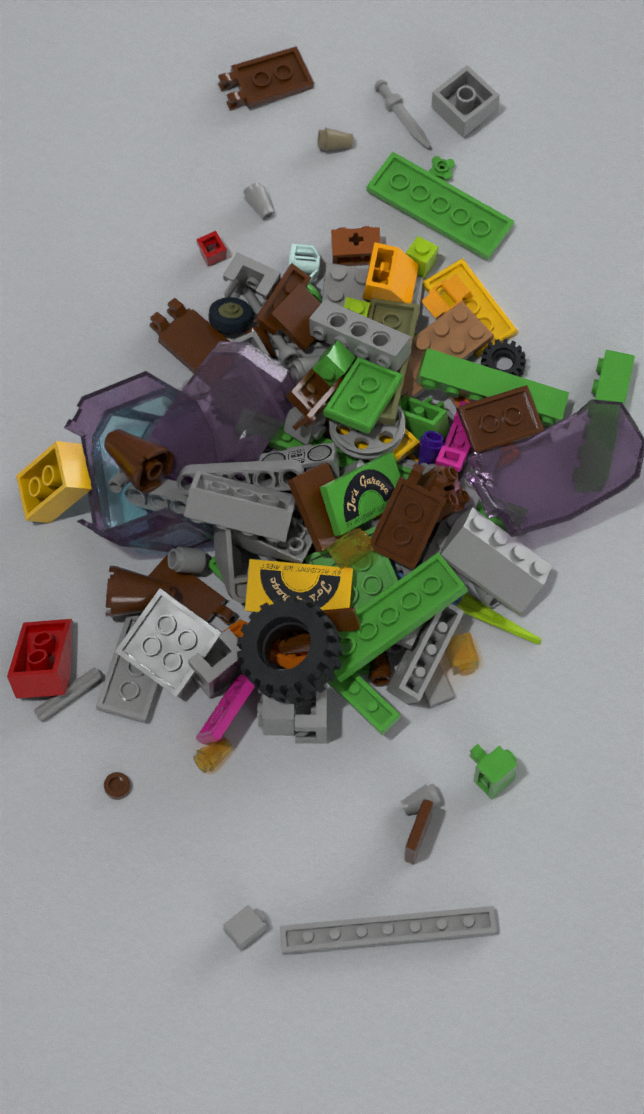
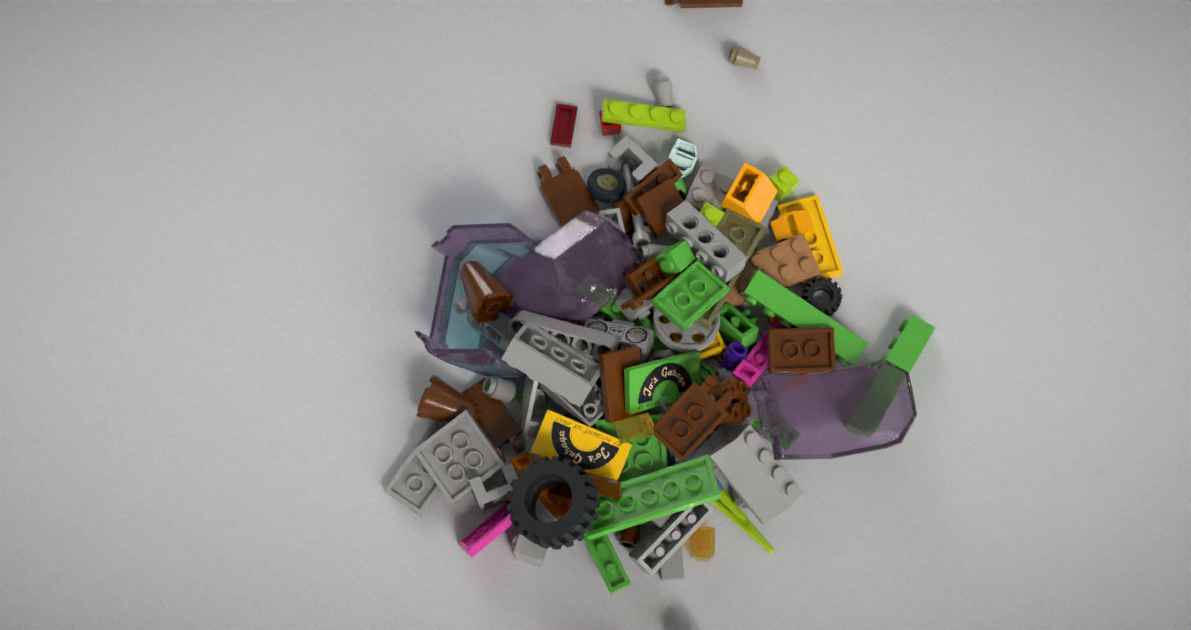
camera: 15 degrees right, 5 degrees up
(42, 659) = (353, 435): red slope -> none
(53, 482) = (410, 287): yellow brick -> none
(73, 691) = (365, 472): light grey axle -> none
(117, 785) = (380, 563): reddish brown tile -> none
(162, 267) = (564, 125): none -> dark red tile
(211, 755) = (464, 563): clear yellow cone -> none
(246, 230) = (643, 115): none -> lime plate
(313, 727) = (555, 569): light grey panel -> none
(344, 248) = (720, 151): dark orange brick -> none
(394, 103) = (805, 39): light grey sword -> none
(440, 206) = (814, 143): bright green plate -> none
(444, 174) = (826, 115): bright green plate -> none
(465, 101) = (865, 57): light grey brick -> none

